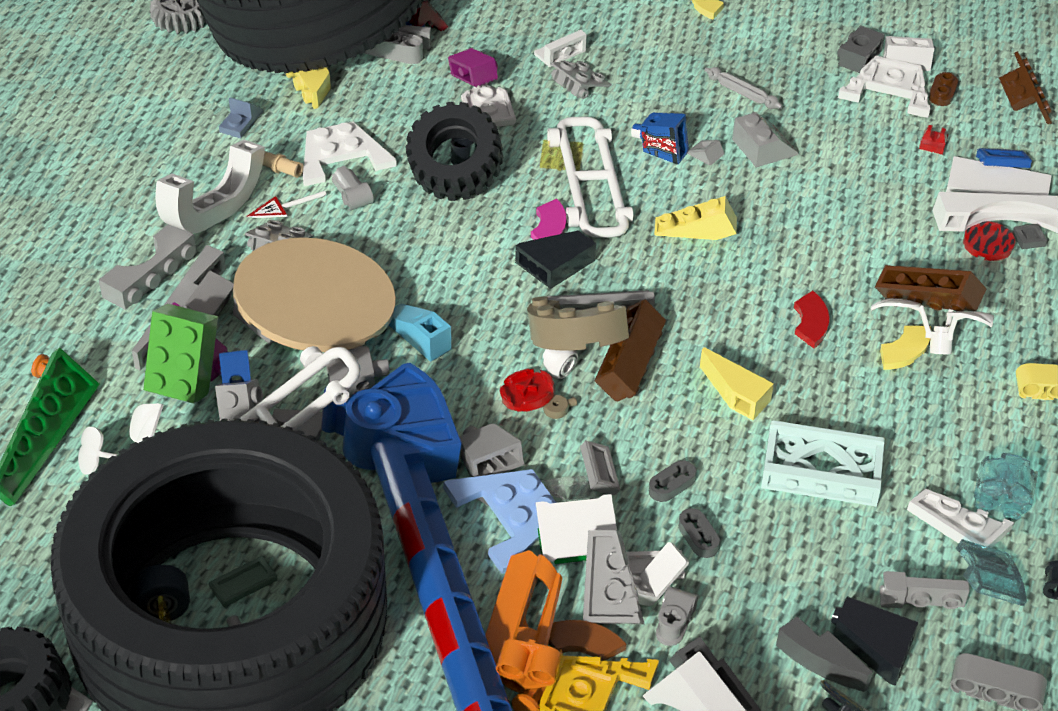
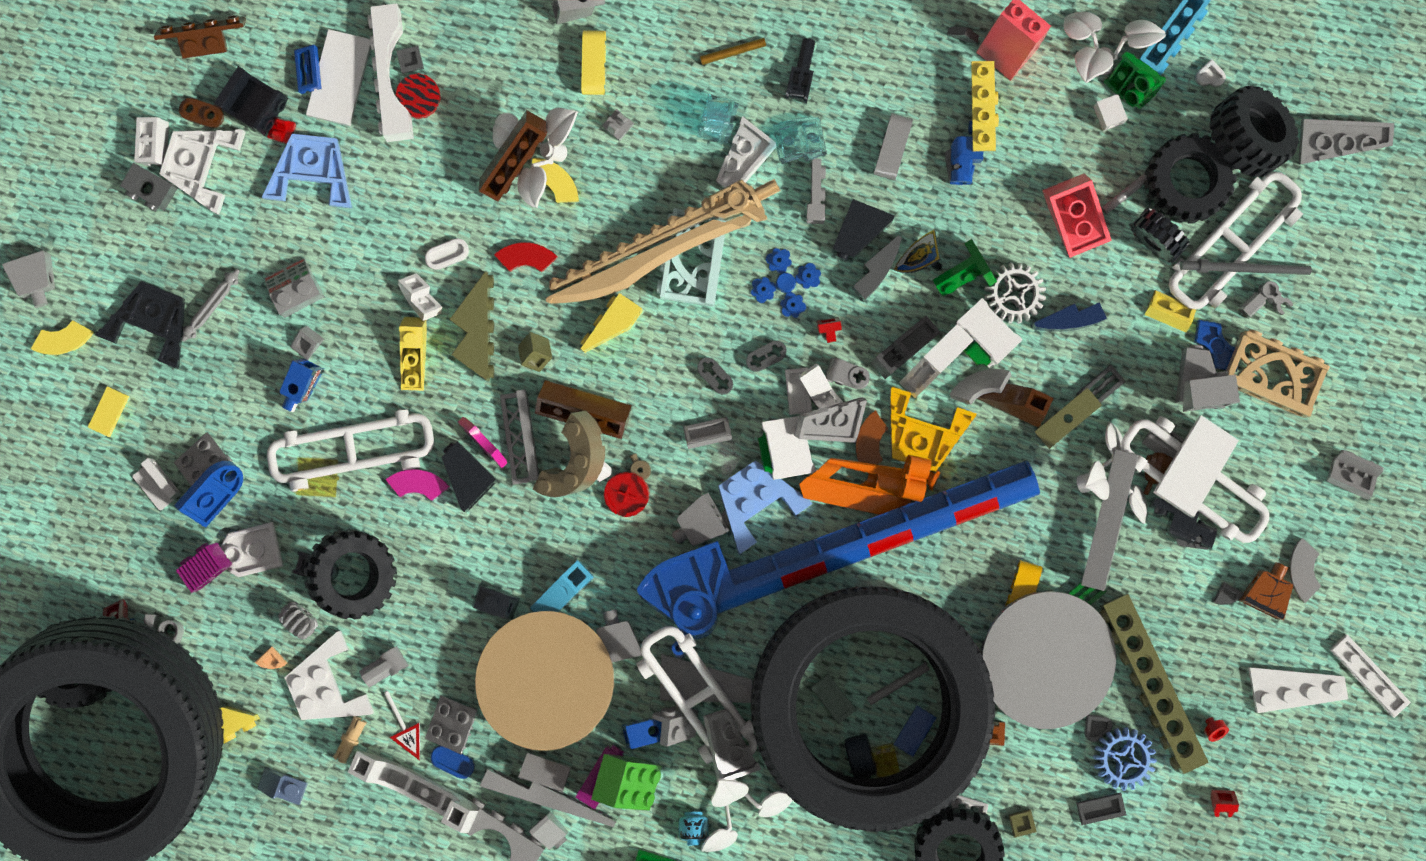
camera: 85 degrees left, 40 degrees up
(114, 427) = (693, 828): none -> medium azure head
(141, 297) = (549, 831): none -> light grey slope
(235, 241) = (452, 762): none -> blue tile
(373, 116) = (271, 659): none -> light nougat tile
(404, 121) = (298, 620): none -> light grey gear
(414, 261) = (495, 602): none -> black torso
(546, 70) = (211, 492): none -> blue plate
(600, 265) = (482, 442): none -> dark pink tile
(633, 23) = (108, 411): none -> light yellow tile
(700, 317) = (534, 351): none -> olive panel
(731, 52) = (154, 312): none -> black wing
(732, 270) = (475, 320): none -> olive slope
(736, 596) = (829, 327): none -> red tile
(759, 229) = (417, 294): none -> white slope
(797, 560) = (785, 282): none -> blue plant
(810, 256) = (446, 254): none -> white tile
(895, 480) = (725, 204): none -> tan piece
(902, 158) = (310, 160): none -> light blue wing
(963, 115) = (251, 101): none -> black panel
(983, 404) = (618, 125): none -> light grey tile

